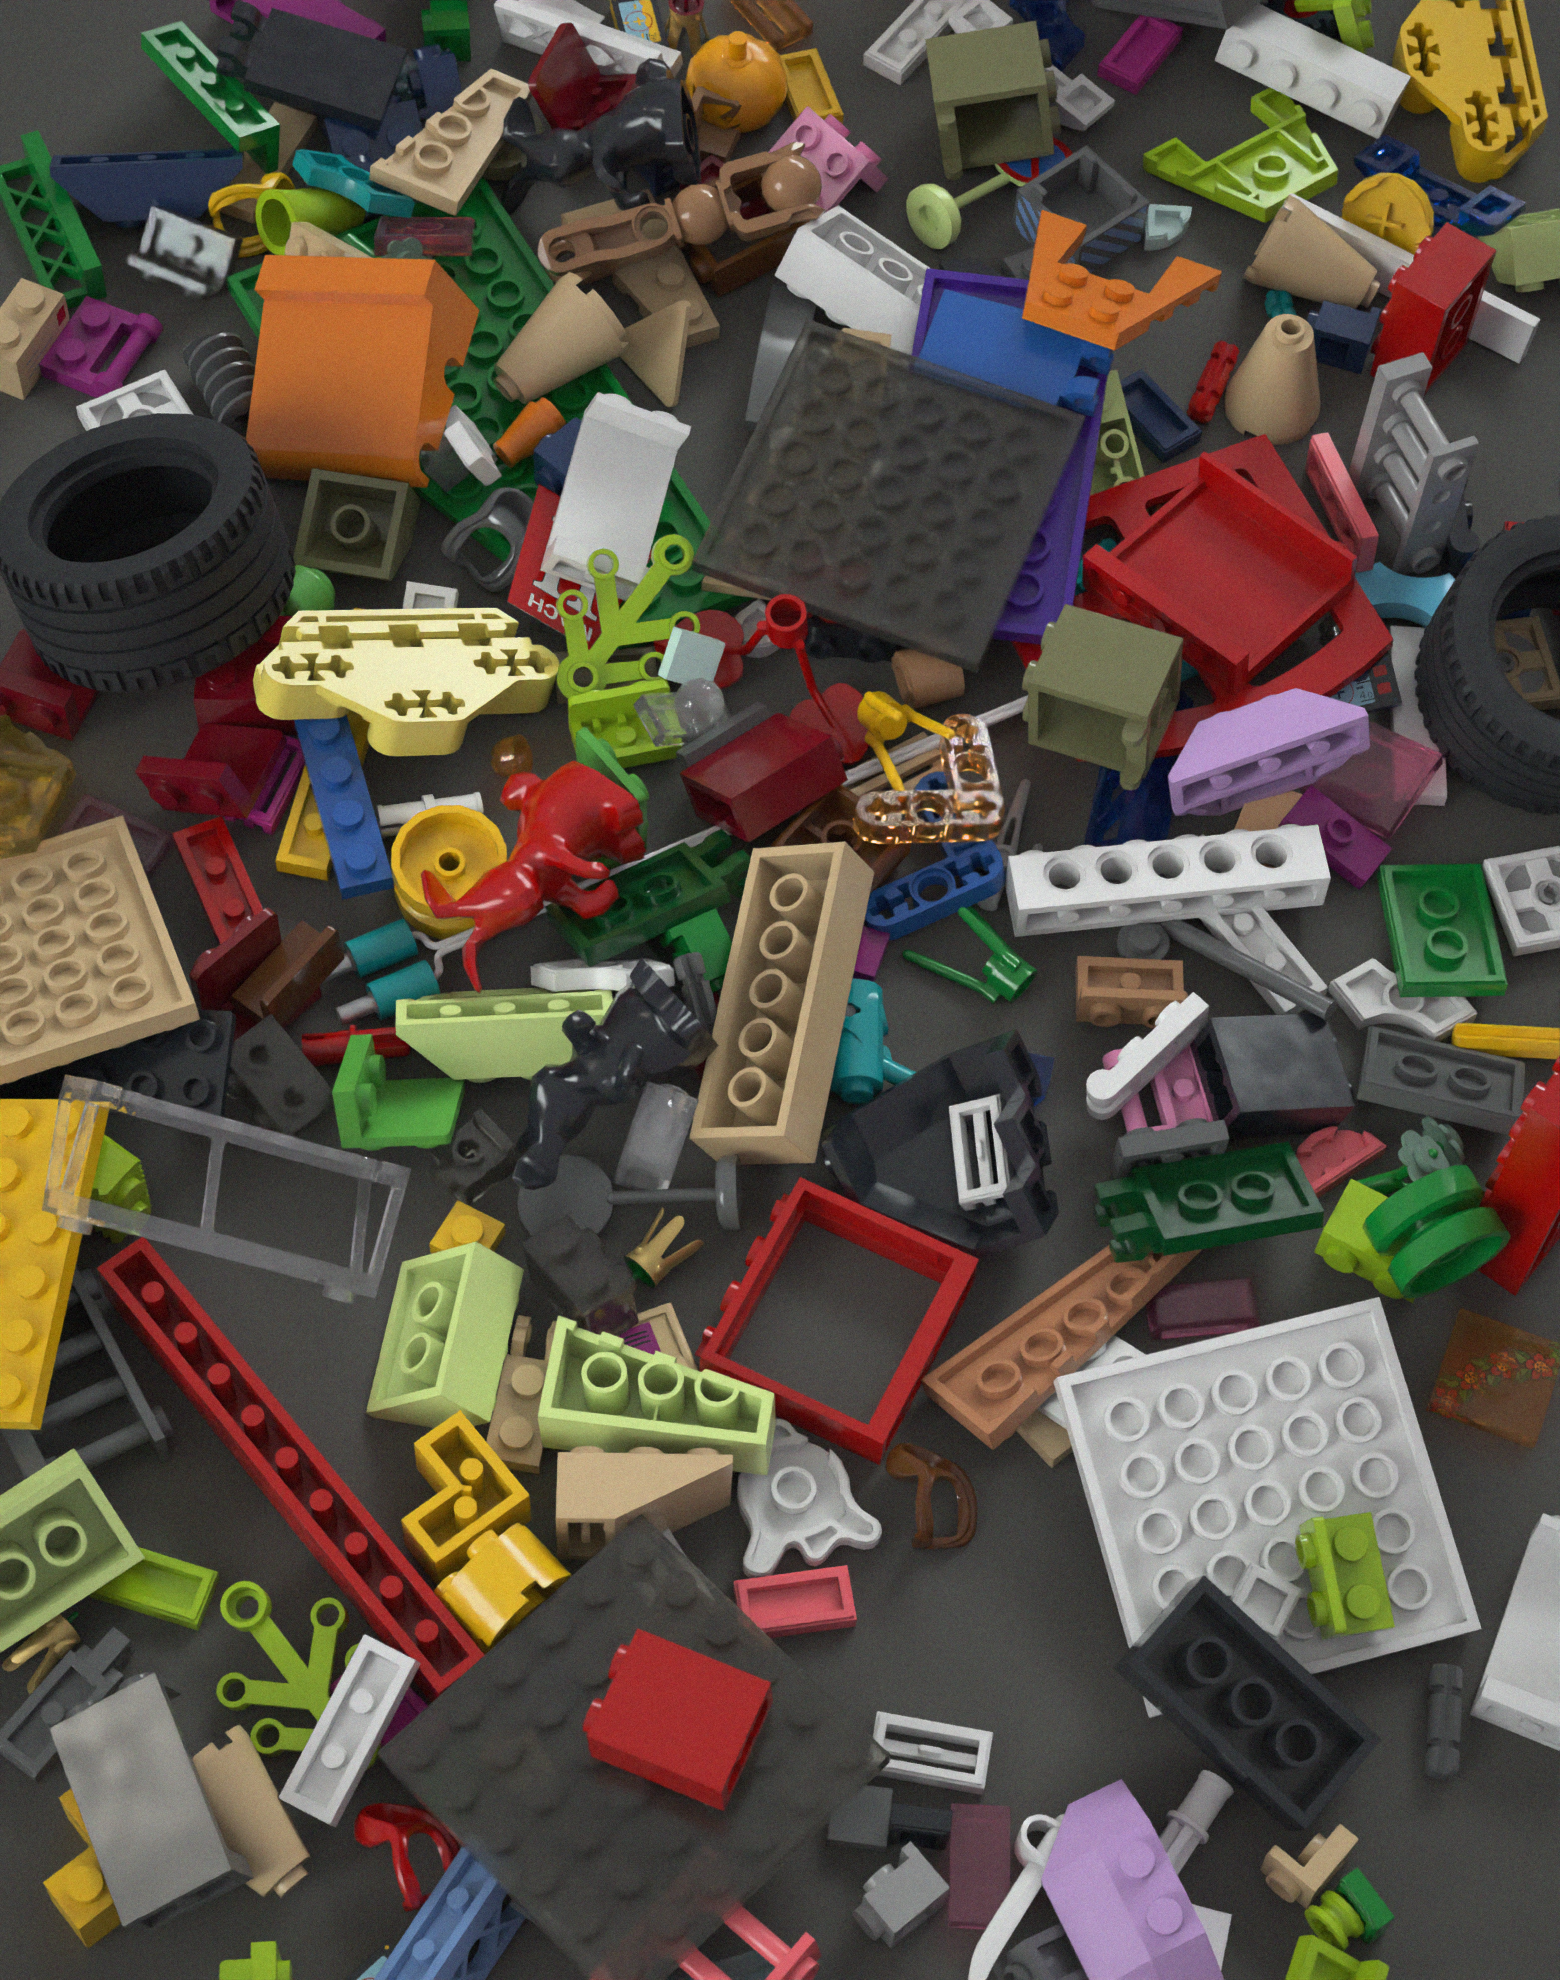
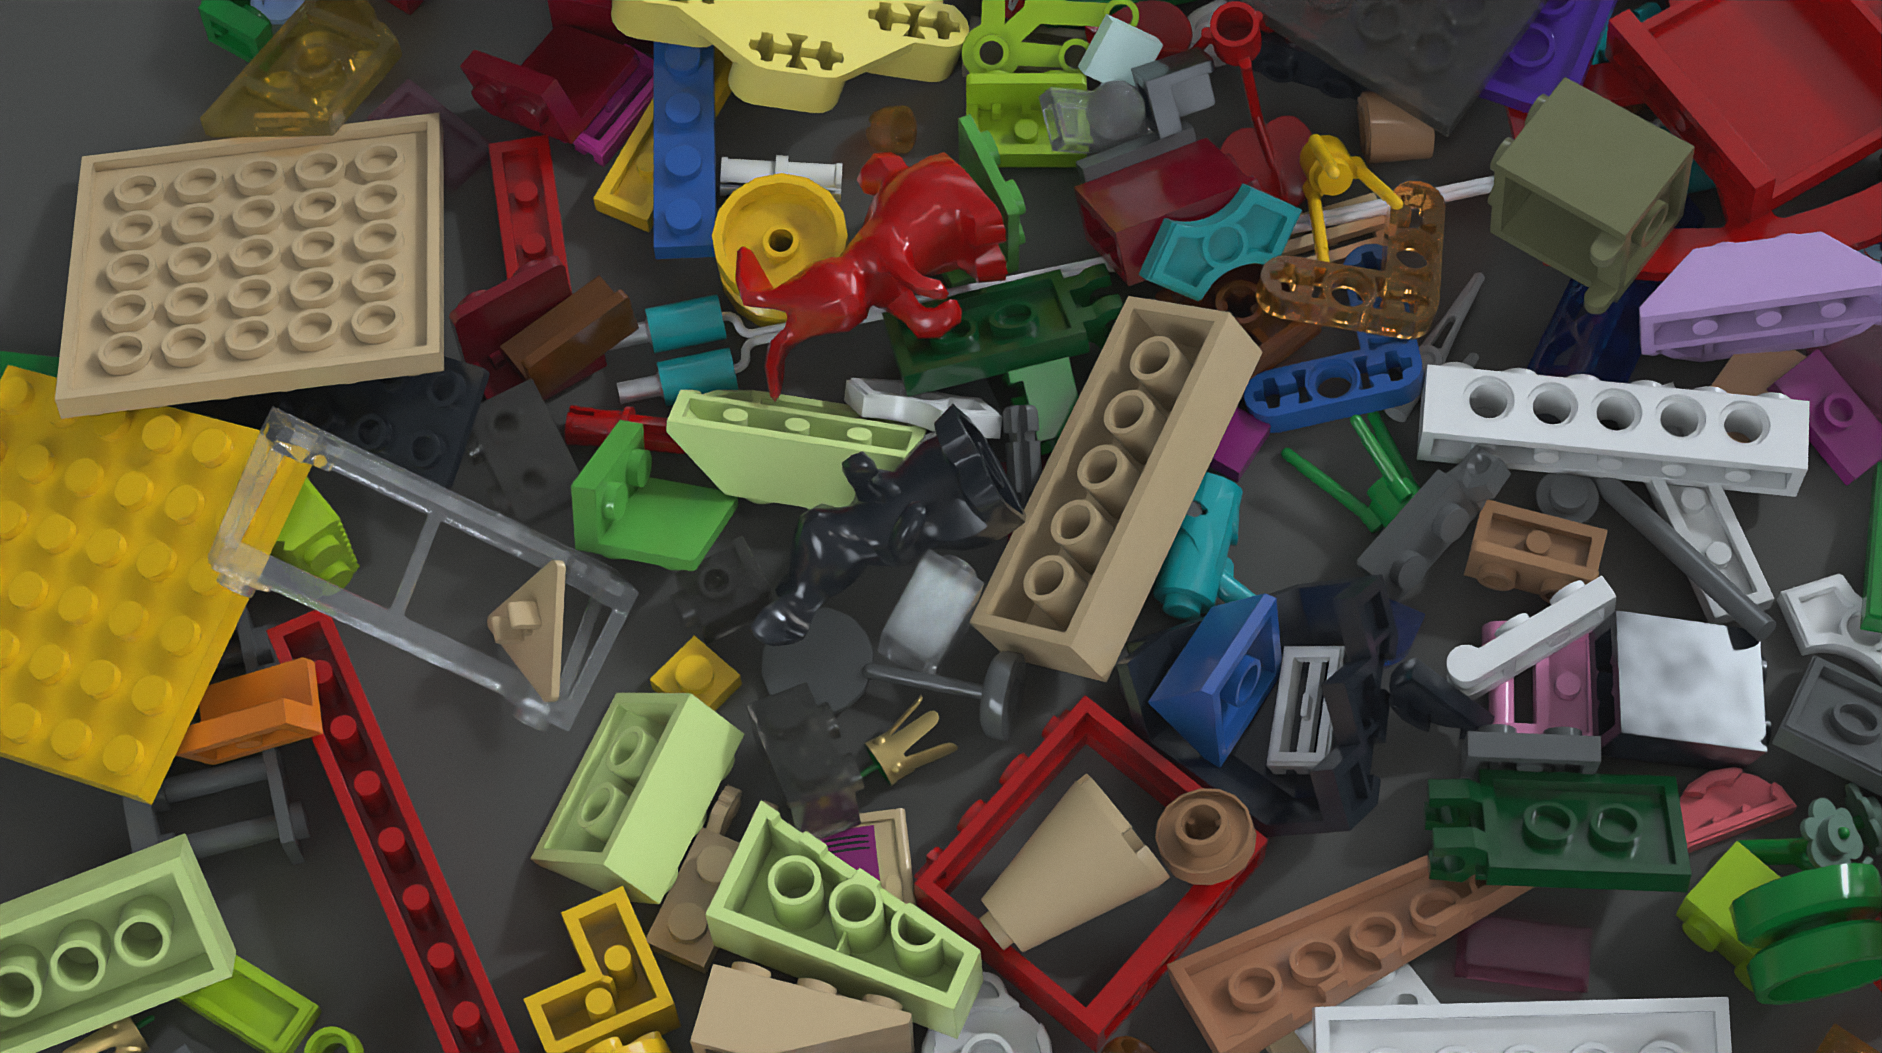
camera: 20 degrees right, 5 degrees up
(108, 1337) = (255, 713): none -> orange panel
(322, 1220) = (532, 628): none -> tan piece
(743, 677) = (1174, 89): none -> panel
(799, 804) = (1196, 253): none -> teal tile
(831, 1313) = (1070, 871): none -> tan cone
(907, 1136) = (1222, 676): none -> blue slope
(931, 1265) = (1205, 836): none -> medium nougat plate
(1044, 979) = (1433, 521): none -> dark grey hinge
(1077, 1121) = (1425, 698): none -> black tile

